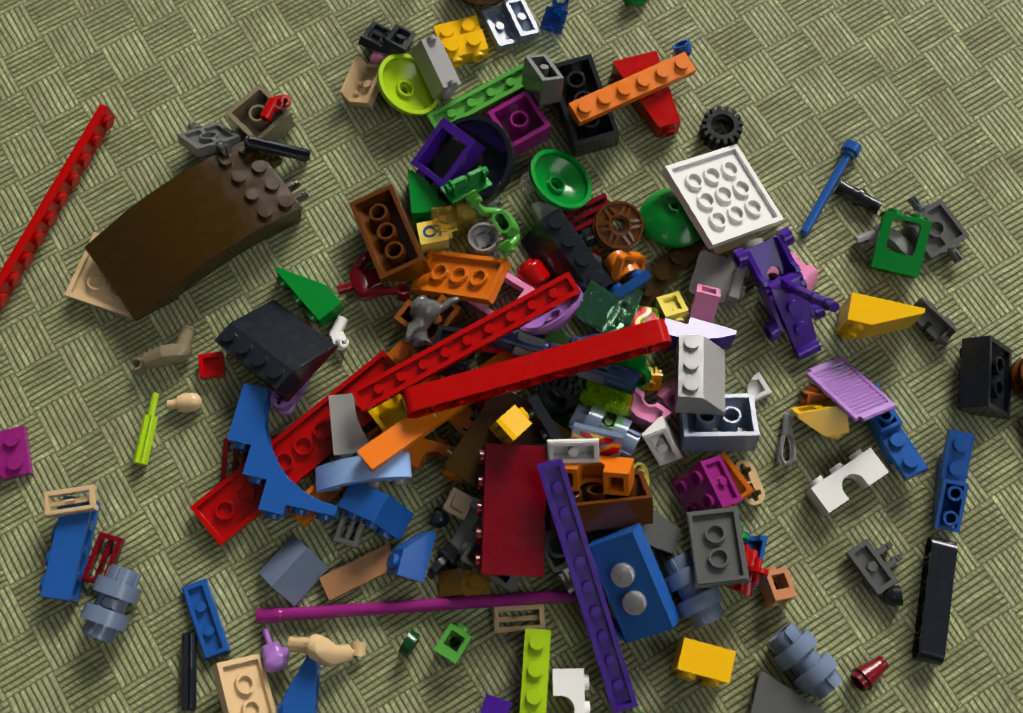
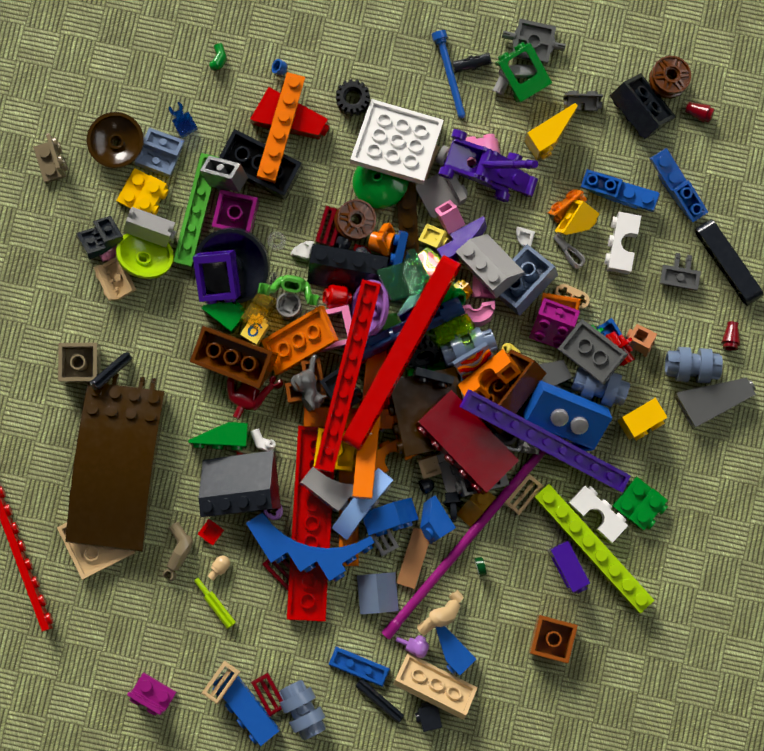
camera: 45 degrees left, 10 degrees up
(208, 139) = (64, 406): dark grey plate -> none
(273, 105) = (84, 347): red arm -> none
(444, 647) = (509, 547): bright green brick -> none
(461, 186) = (248, 283): green hinge -> none
(511, 424) = (420, 397): yellow slope -> none
(560, 179) = (294, 224): green dish -> none
(574, 450) = (467, 378): white slope -> none
(662, 442) = (505, 321): white slope -> none
(850, 390) = (577, 189): medium lavender window -> none
(893, 596) = (705, 281): black hinge -> none

